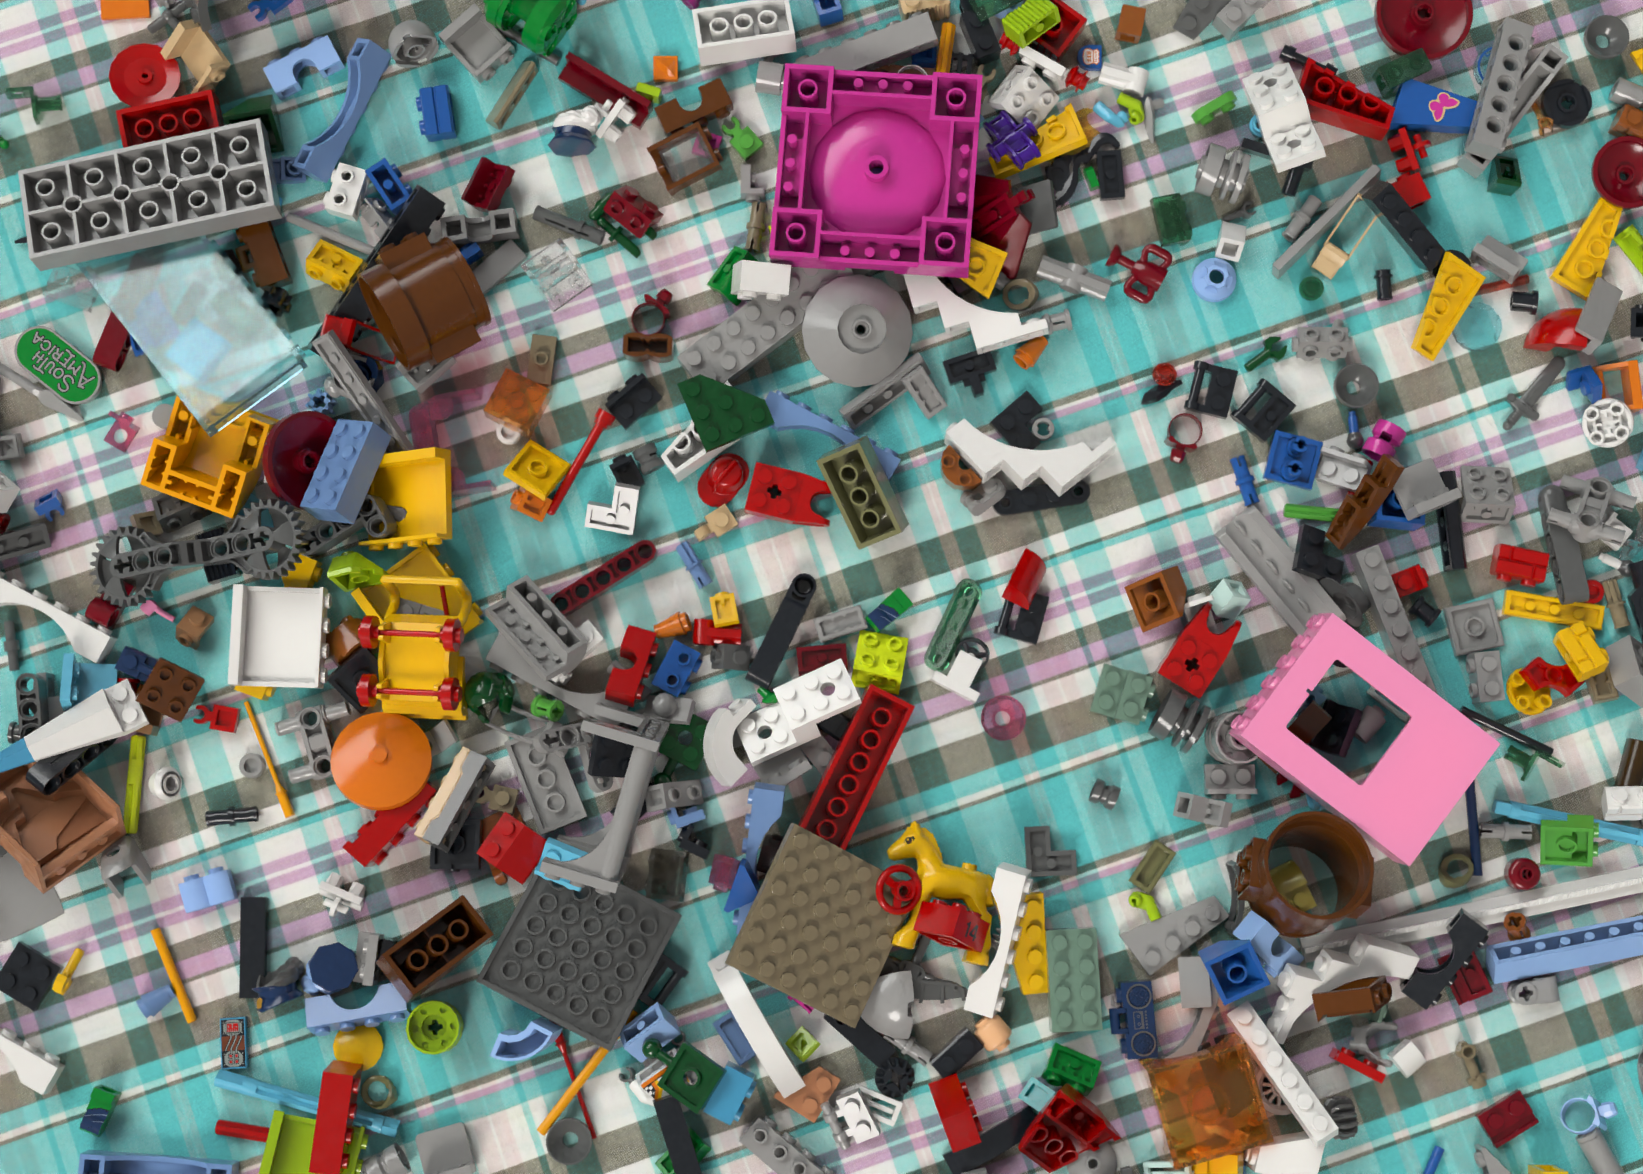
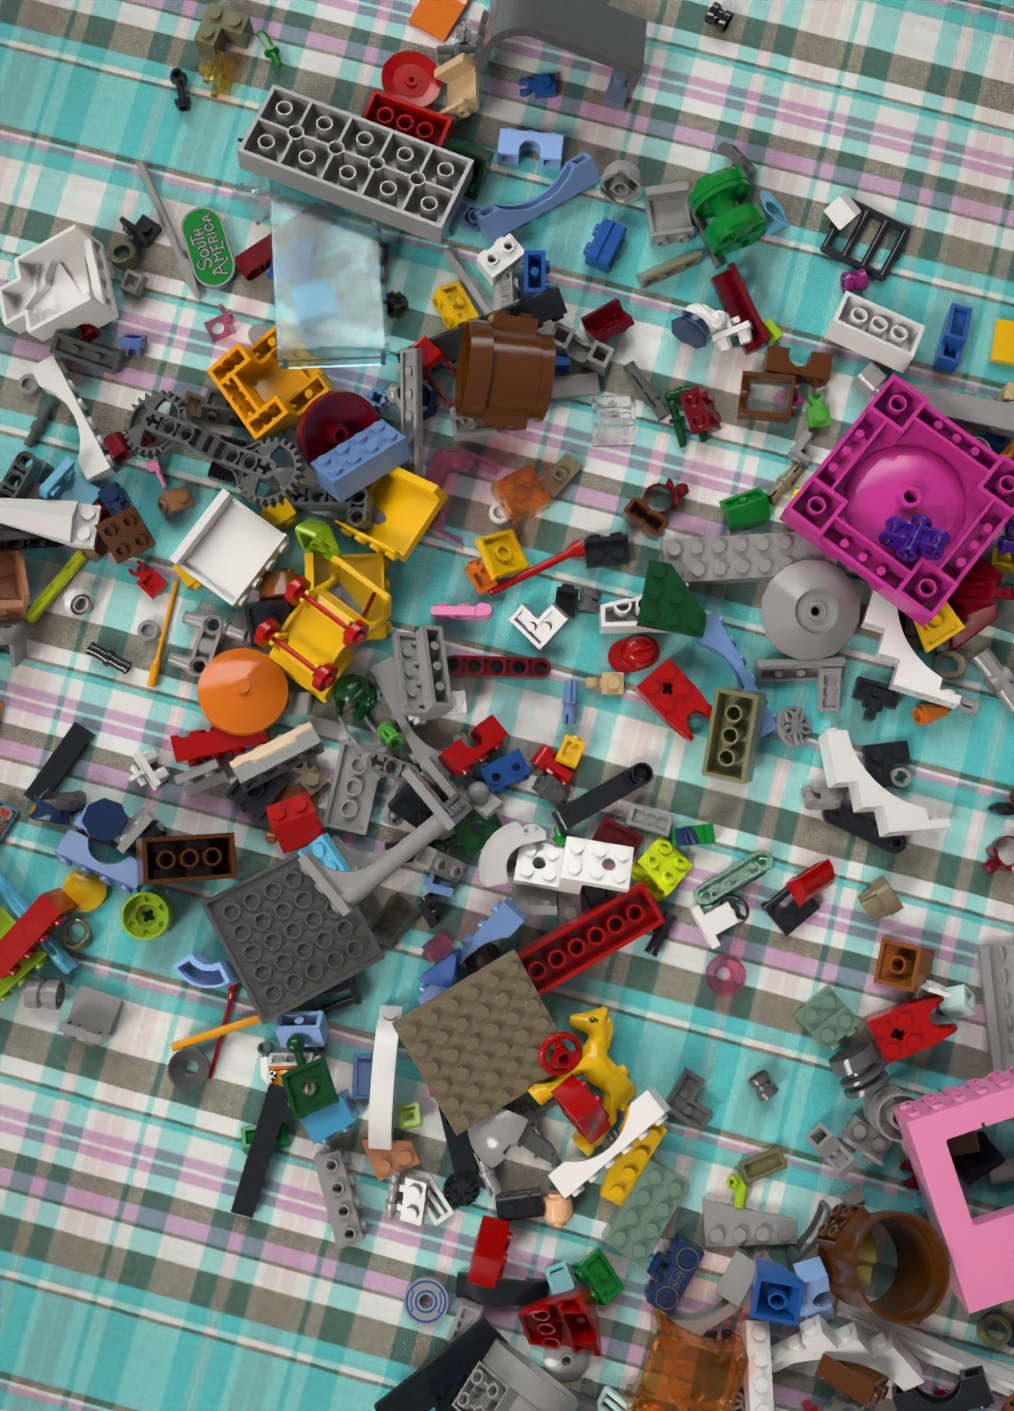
camera: 35 degrees right, 0 degrees up
(39, 104) = (321, 50): clear green bracket -> none
(207, 890) = (54, 700): light blue brick -> none
(268, 258) = (412, 265): reddish brown piece -> none
(397, 867) = (202, 777): none -> light grey bracket
(536, 549) = (462, 612): none -> bright pink hinge
(665, 68) = (795, 323): orange tile -> none
(675, 625) = (524, 737): orange cone -> none
(760, 278) = (764, 521): white brick -> none
(903, 204) = (914, 537): none -> dark purple axle
(914, 448) = (793, 726): none -> light grey wheel
(920, 721) = (660, 934): none -> black pin
(954, 475) = (810, 766): dark orange cylinder -> none
(1097, 553) = (880, 899): none -> dark tan piece
(1252, 832) = (853, 1195): none -> light grey piece

